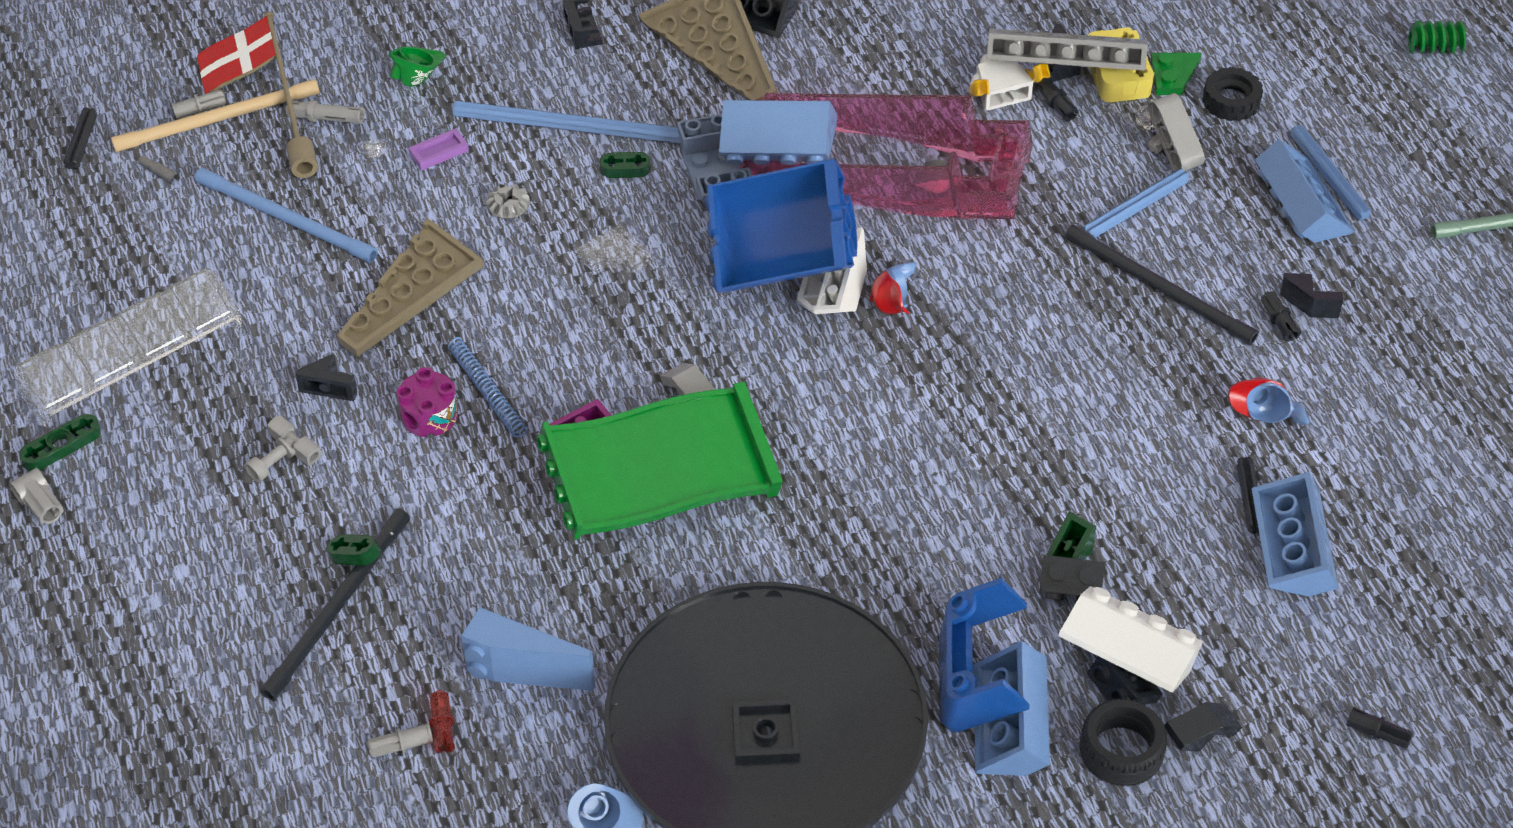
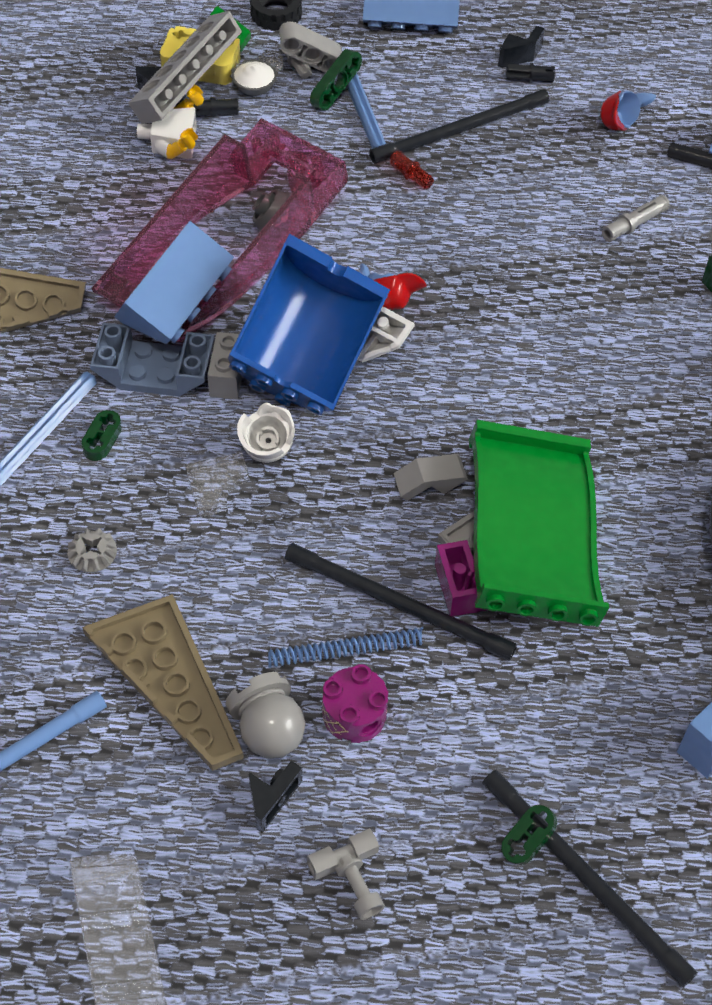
camera: 70 degrees left, 5 degrees up
(387, 351) = (267, 715): none -> light grey tile
(562, 337) = (488, 641): none -> black piece
(664, 256) = (266, 424): none -> white helmet
(1069, 264) = (411, 169): none -> clear red axle
(1114, 110) = (254, 76): none -> white piece
(1124, 459) = (628, 222): none -> light grey pin
(1157, 159) = (345, 67): none -> dark green beam

